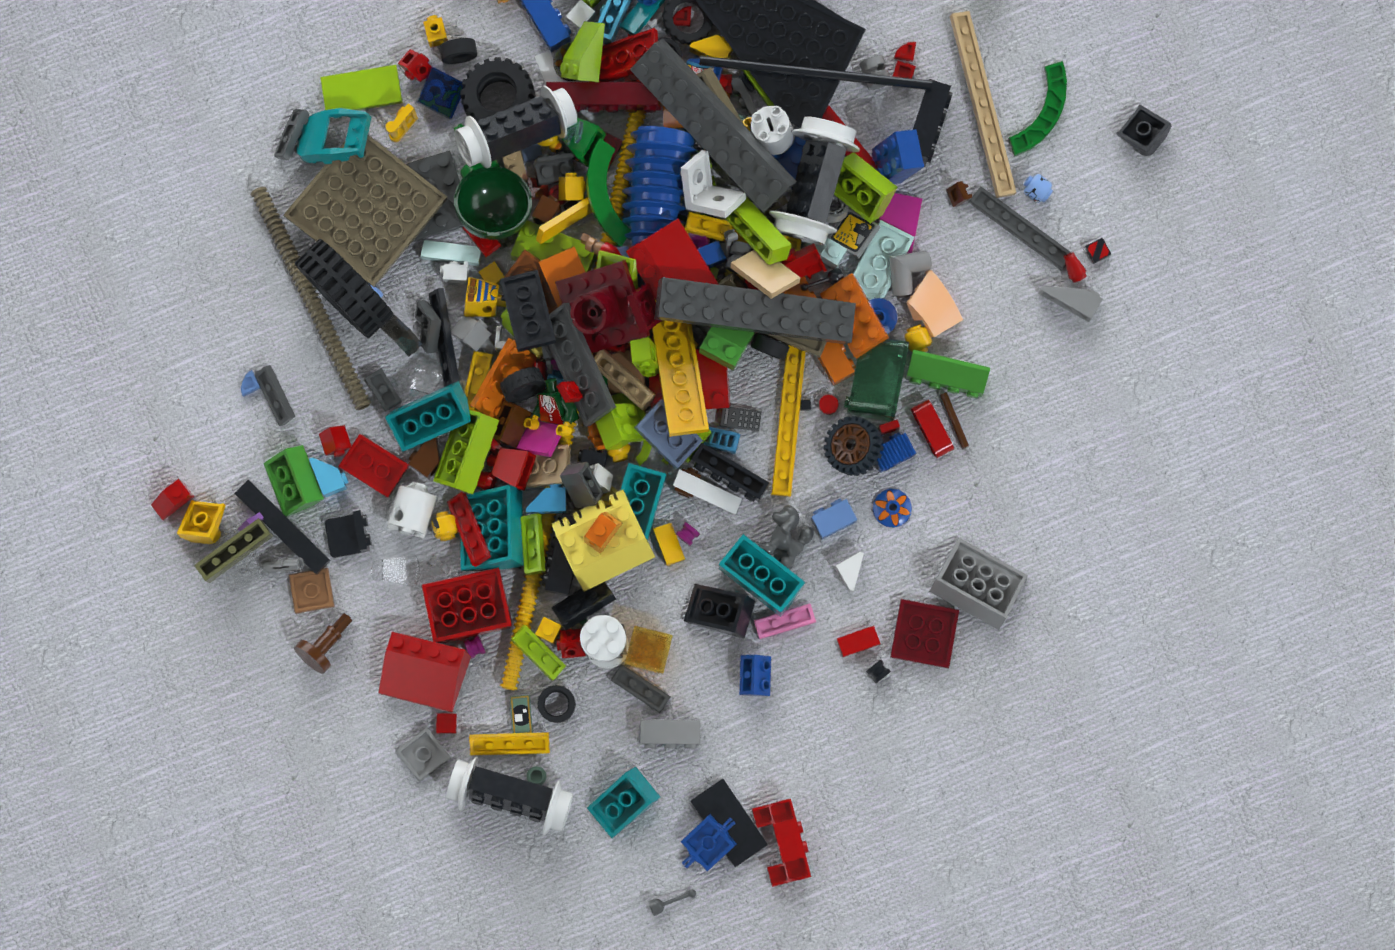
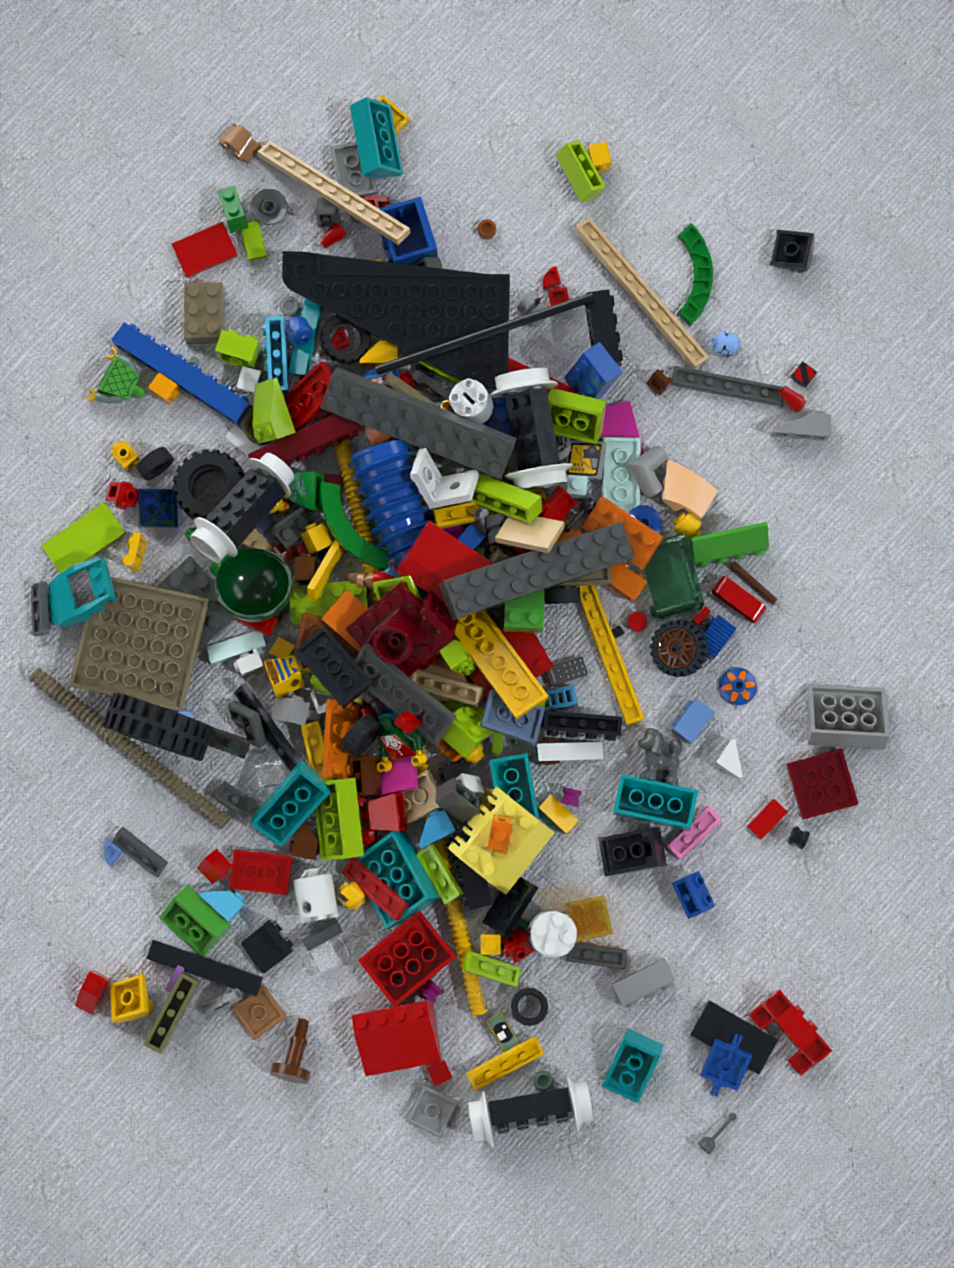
camera: 30 degrees left, 0 degrees up
(401, 547) = (321, 934): none -> dark grey axle

